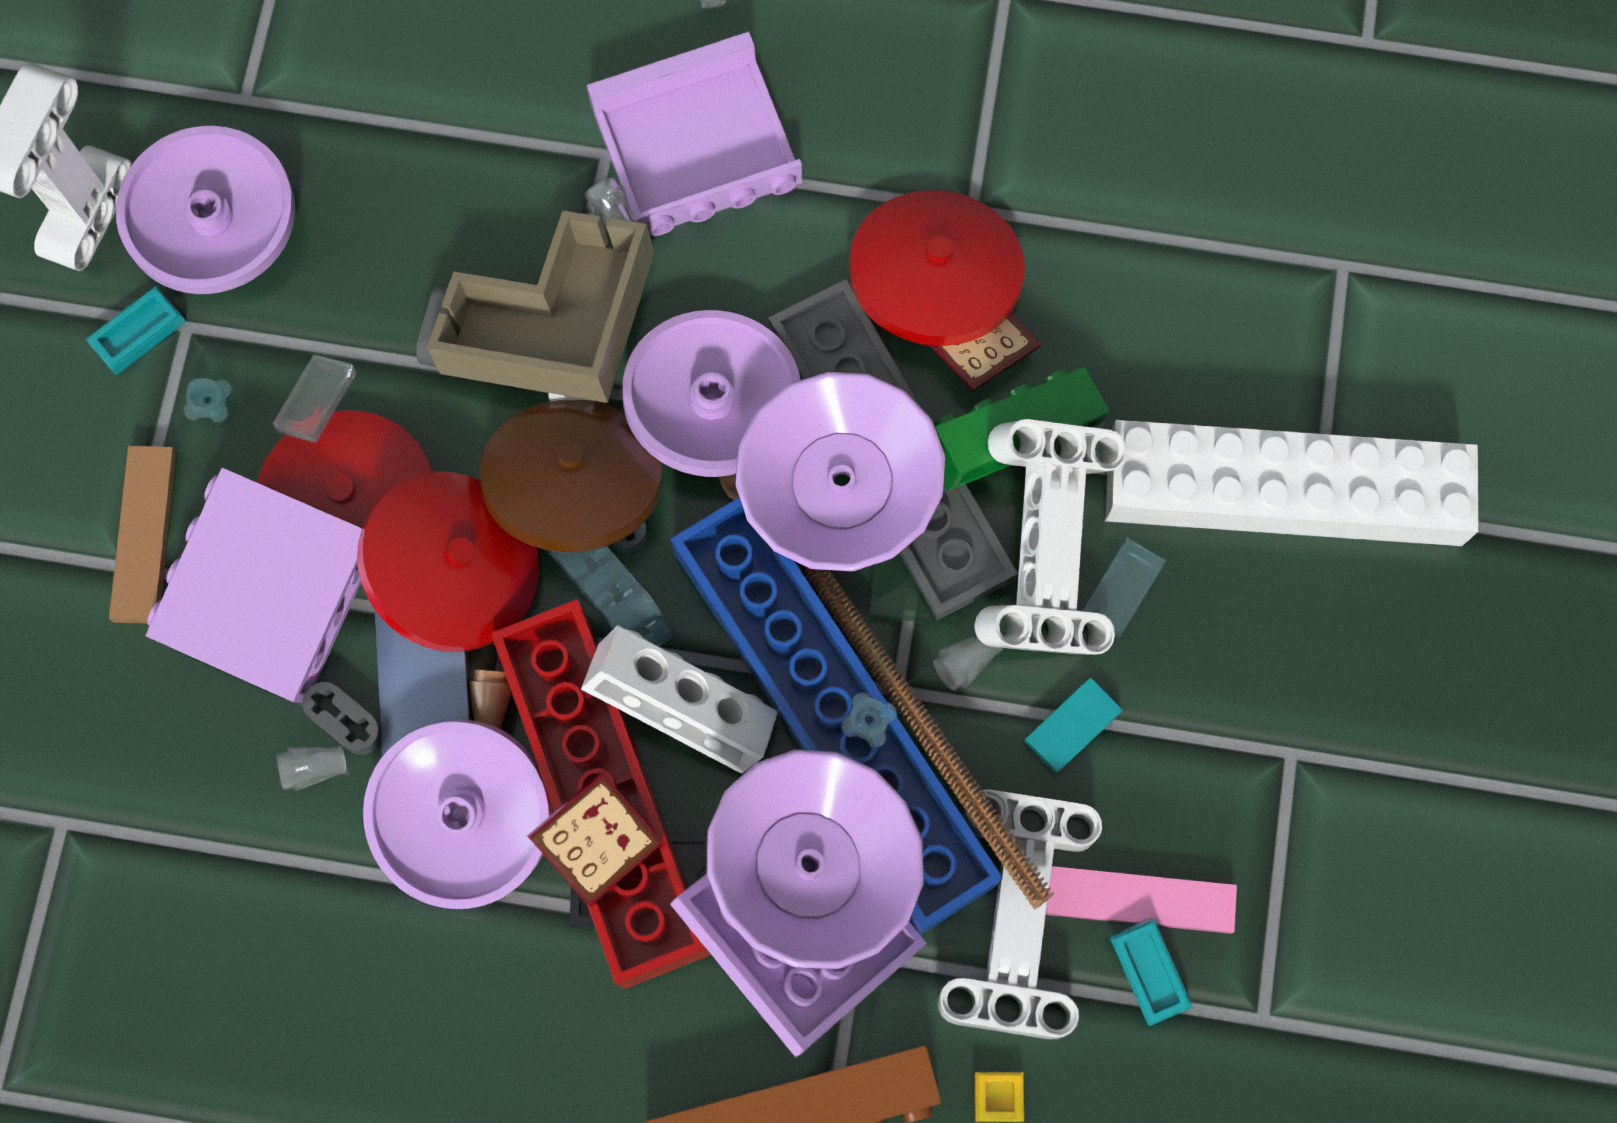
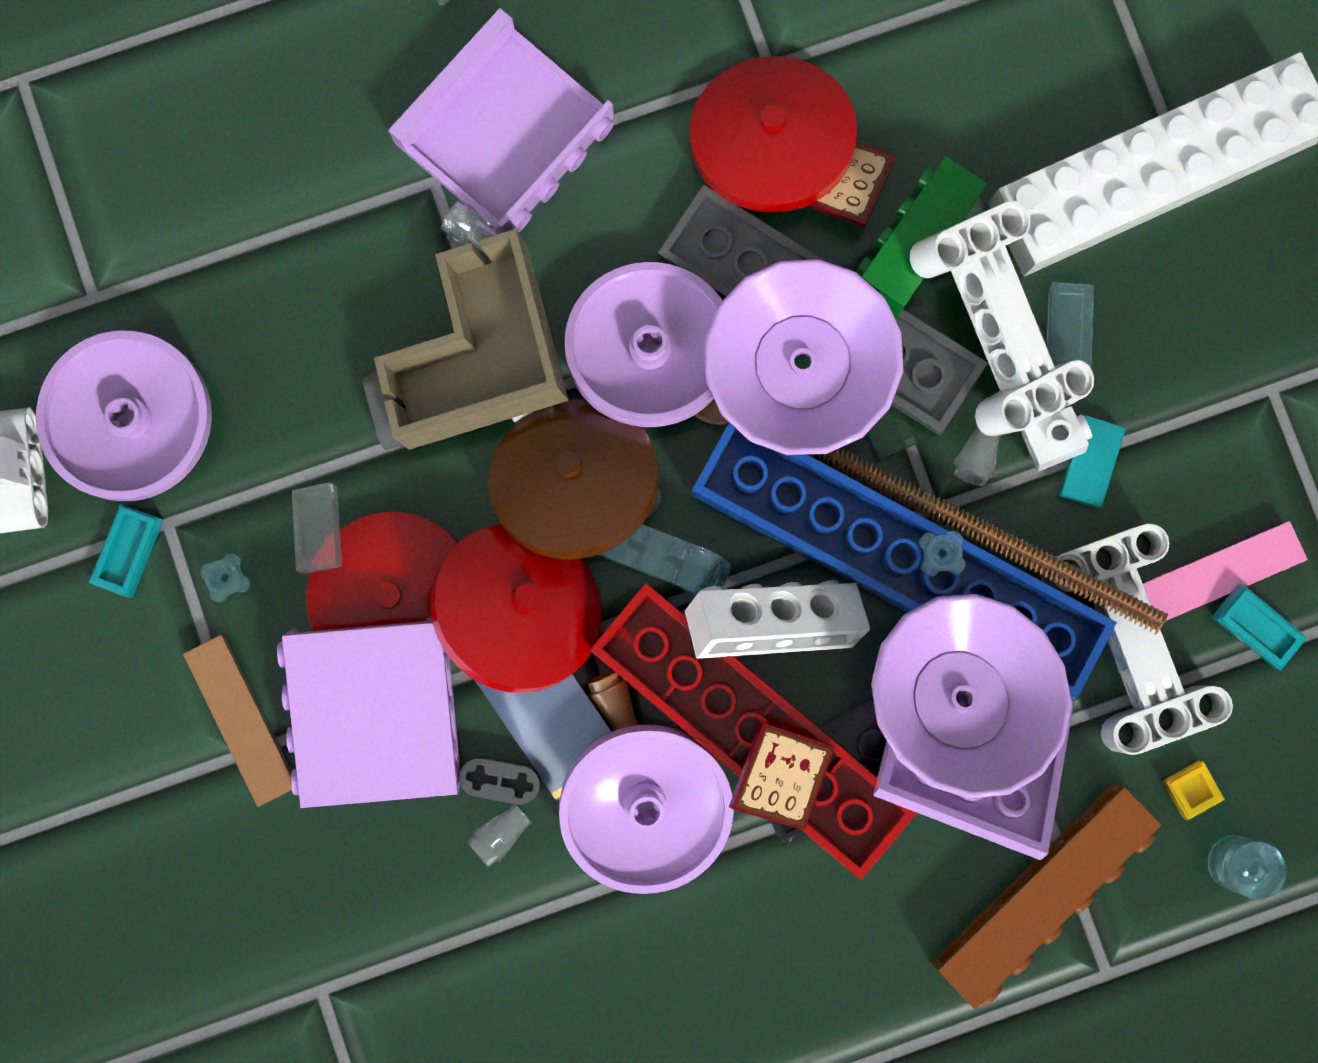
camera: 30 degrees left, 10 degrees up
(1046, 680) = (1057, 438): none -> white brick

